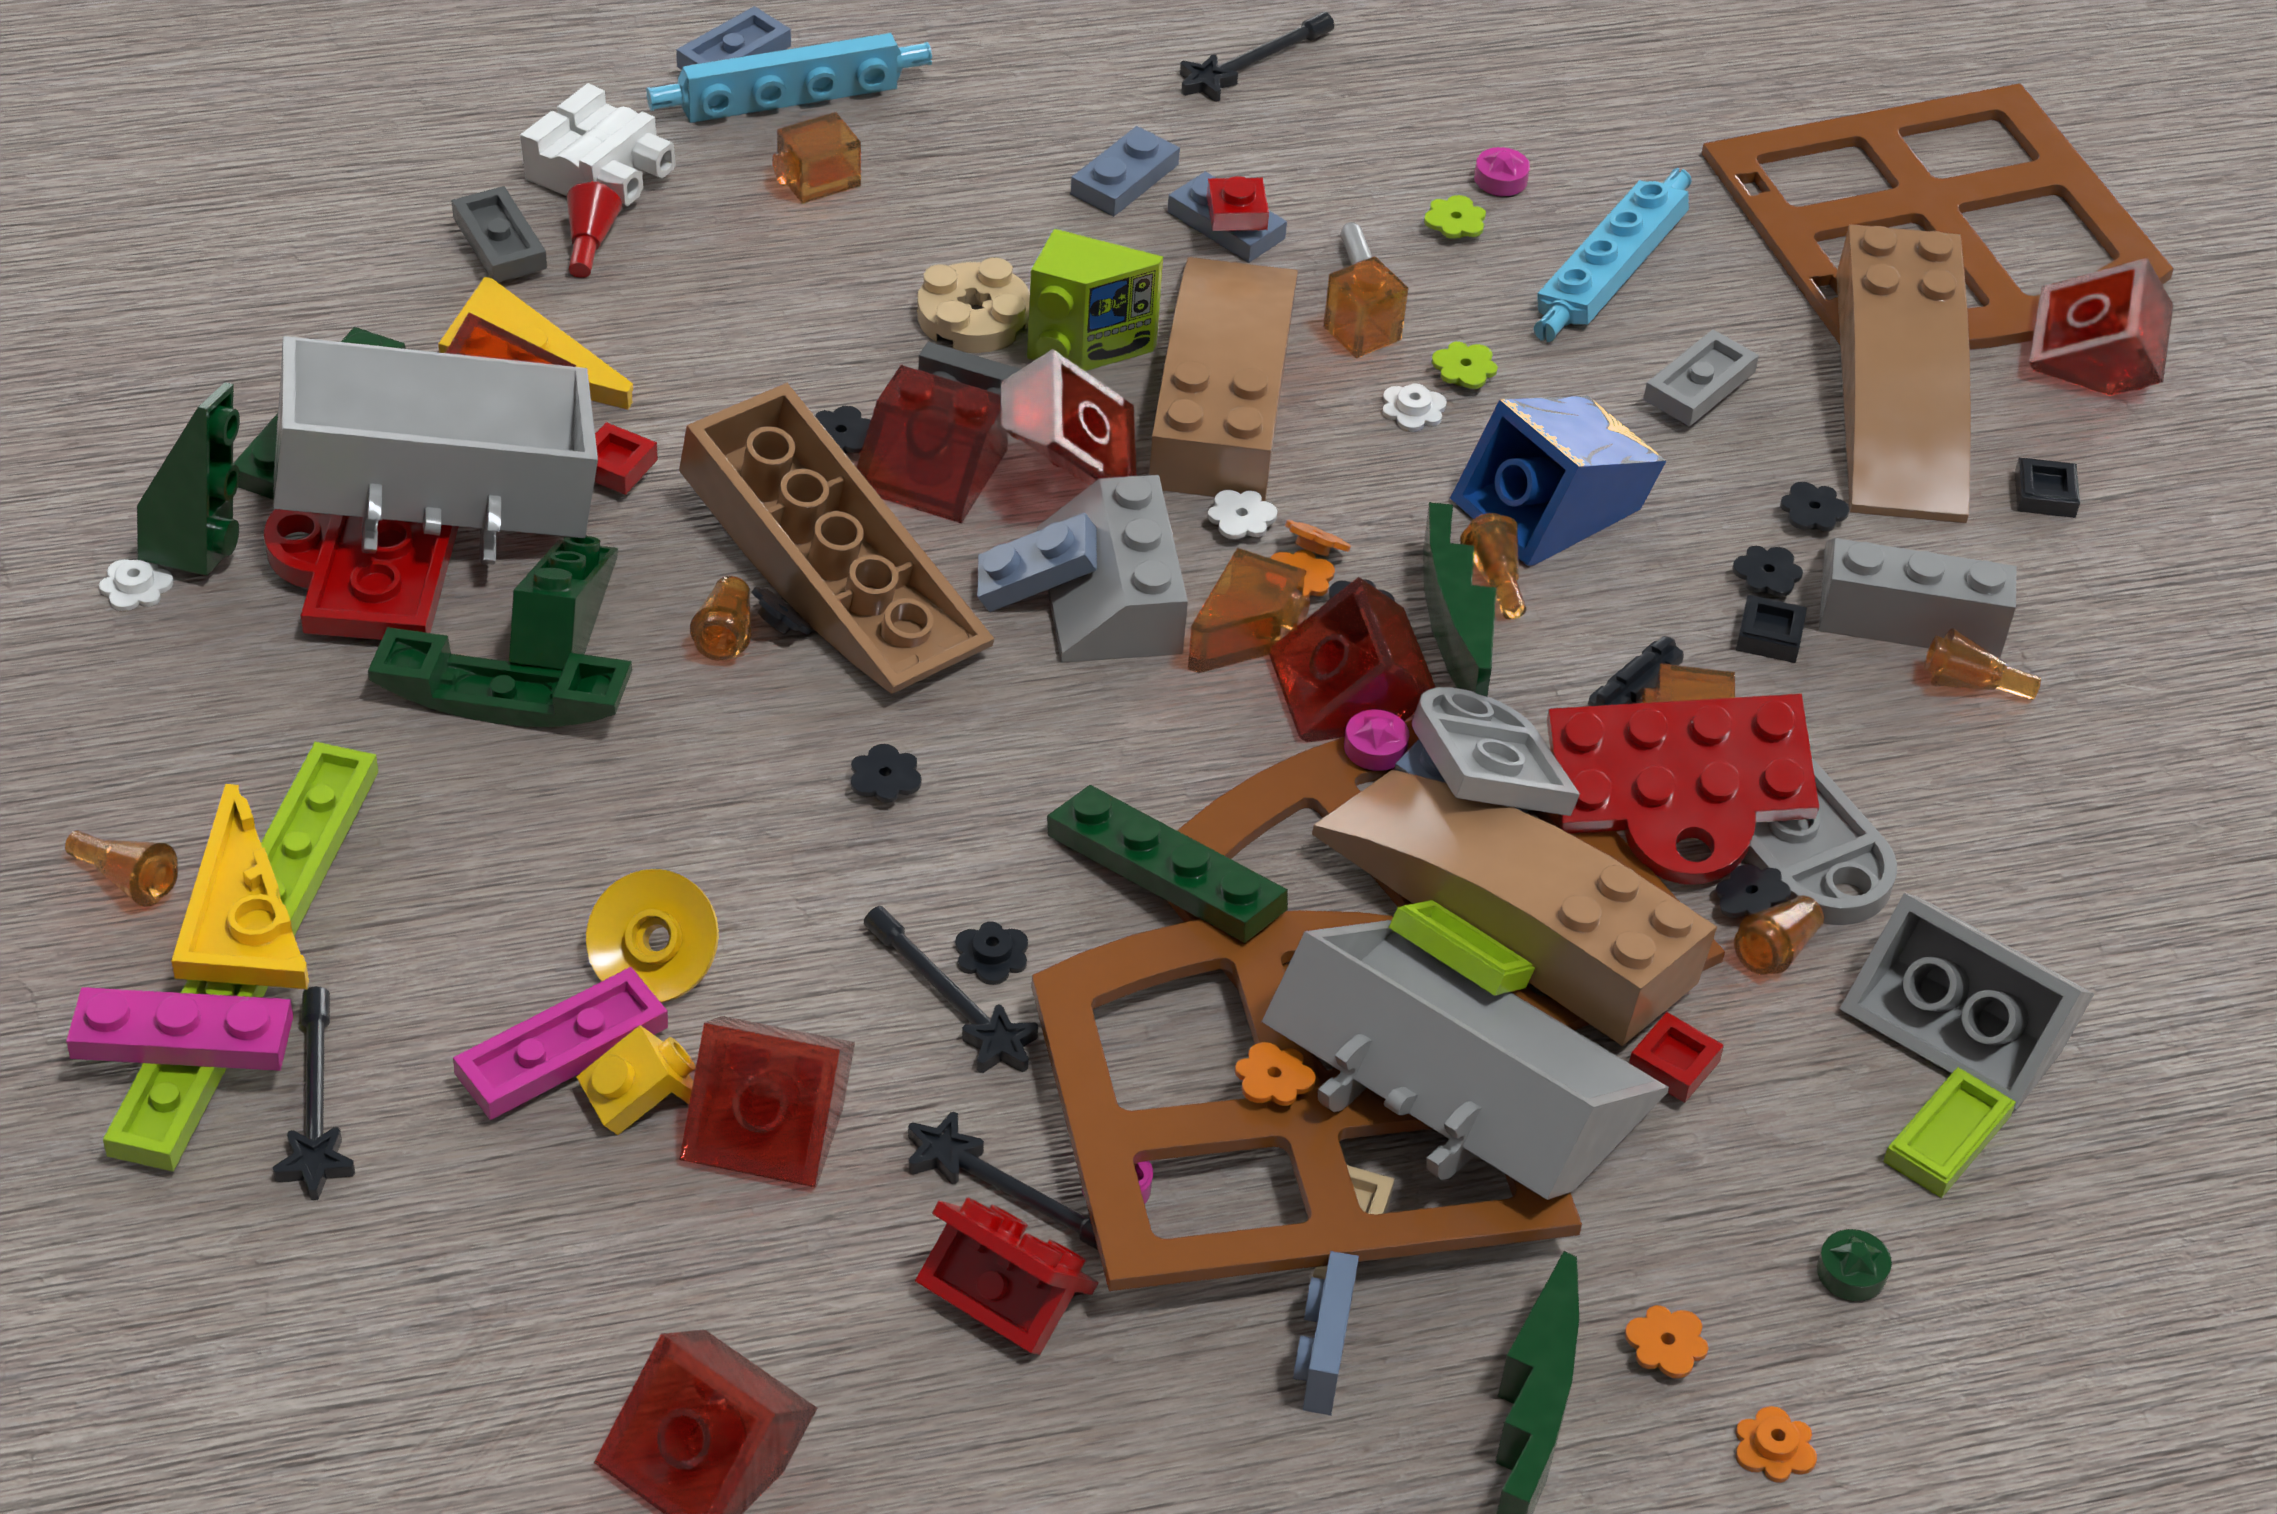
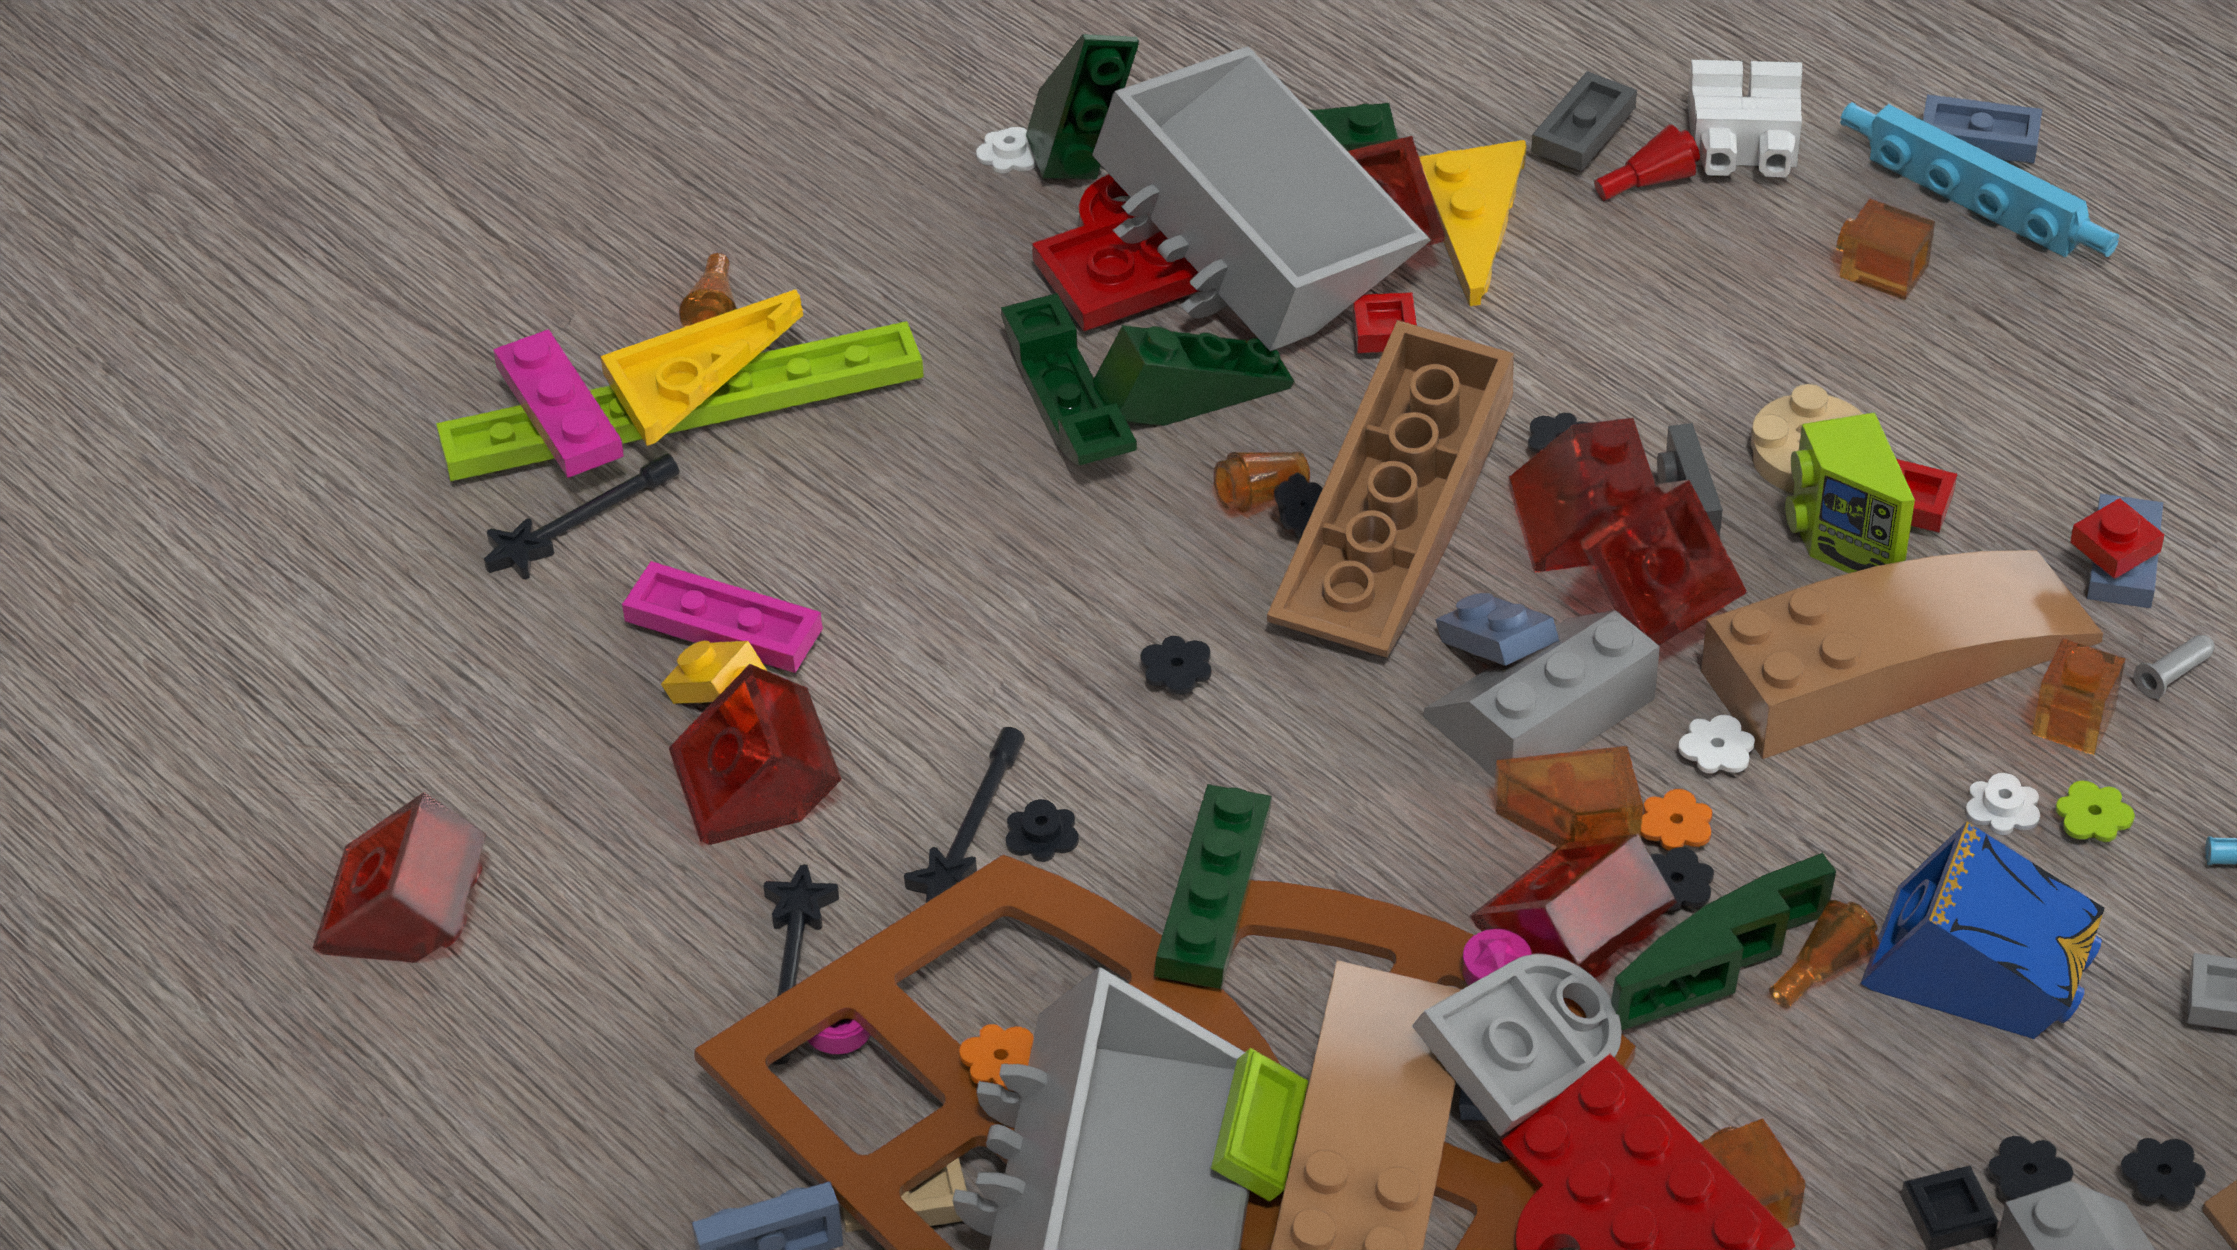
camera: 65 degrees right, 0 degrees up
(636, 907) = (864, 607): yellow dish -> none
(1002, 1276) = (683, 982): red bracket -> none
(1125, 171) = (2112, 452): sand blue plate -> none
(1316, 539) = (1732, 807): orange plant -> none
(1640, 672) = (1815, 1133): black axle -> none

